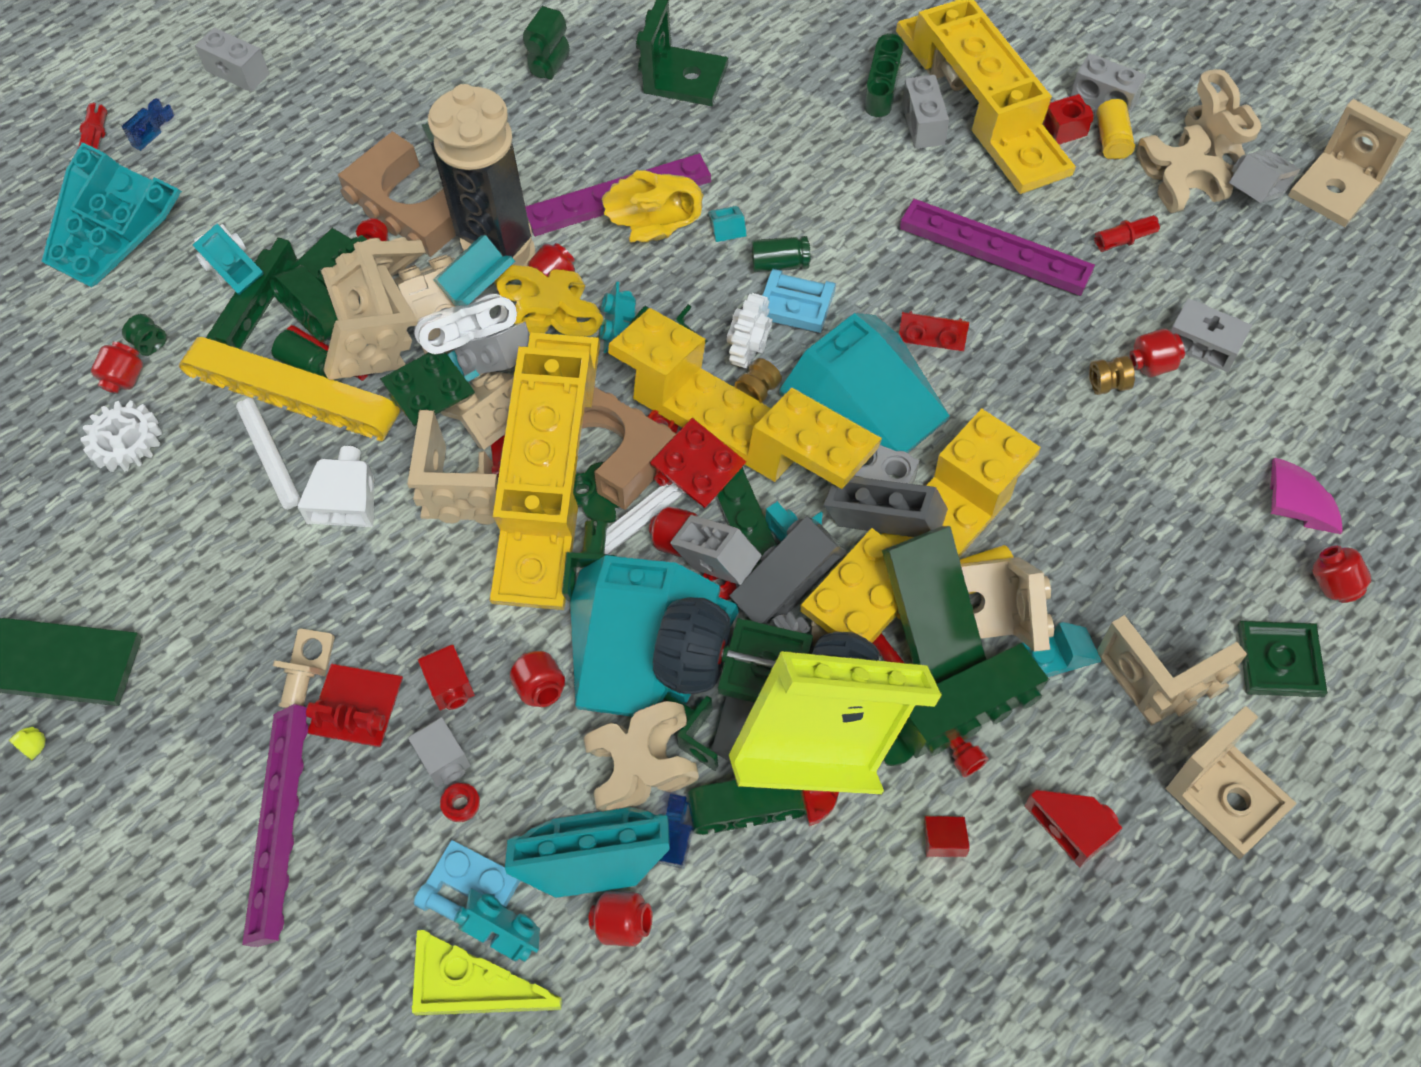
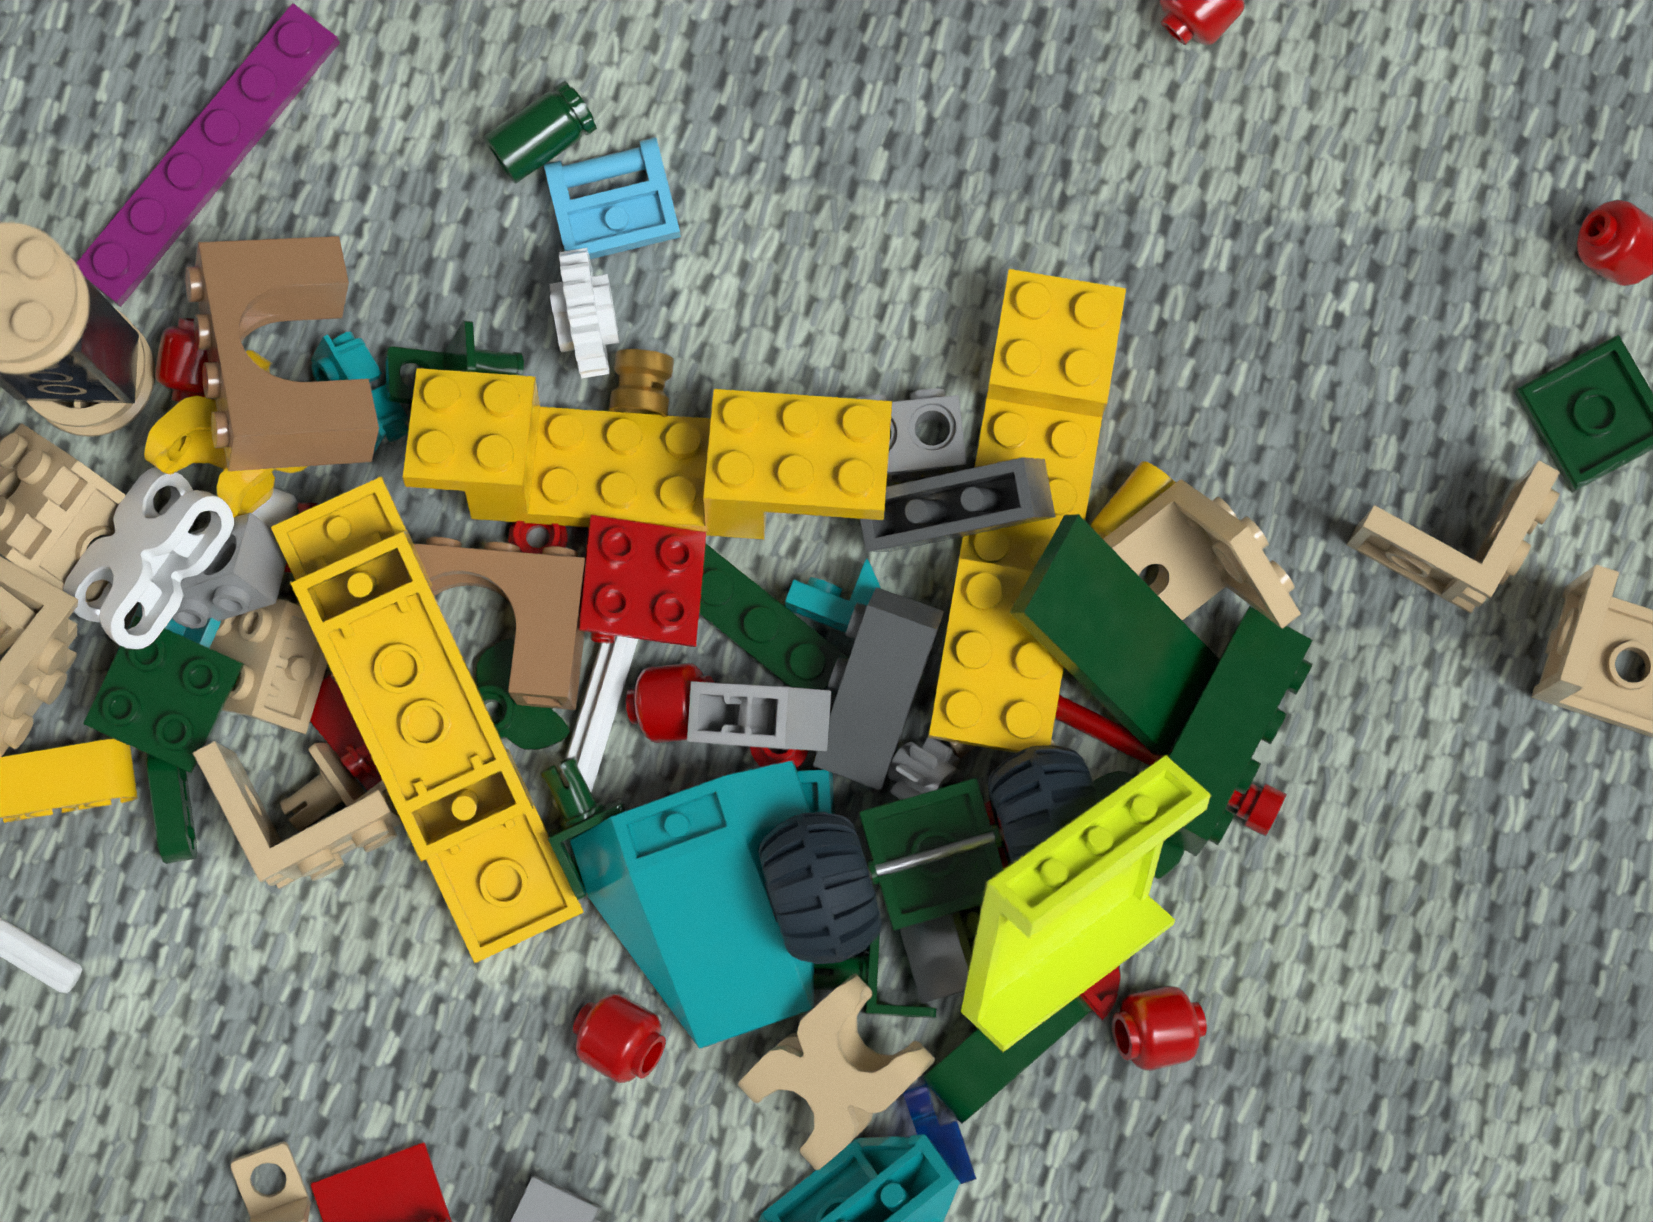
camera: 30 degrees left, 20 degrees up
(340, 491) = (137, 922): white torso -> none
(395, 450) = (171, 811): none -> dark green beam
(446, 678) = (493, 1112): red brick -> none
(472, 272) = (112, 468): teal panel -> none
(568, 290) = (259, 415): none -> medium nougat arch
(653, 204) = (292, 157): yellow hair -> none
(727, 223) = (416, 111): teal slope -> none
(839, 843) = (1158, 1028): none -> red head
(871, 380) = (810, 298): teal wedge -> none
(933, 331) = (873, 133): red hinge -> none
(946, 836) = (1286, 930): red slope -> none
(1069, 650) = (1313, 564): teal slope -> none
(1075, 822) = (1446, 820): red slope -> none
(1111, 375) = (1153, 77): pearl gold wheel -> none
(1303, 498) = (1512, 133): dark pink brick -> none

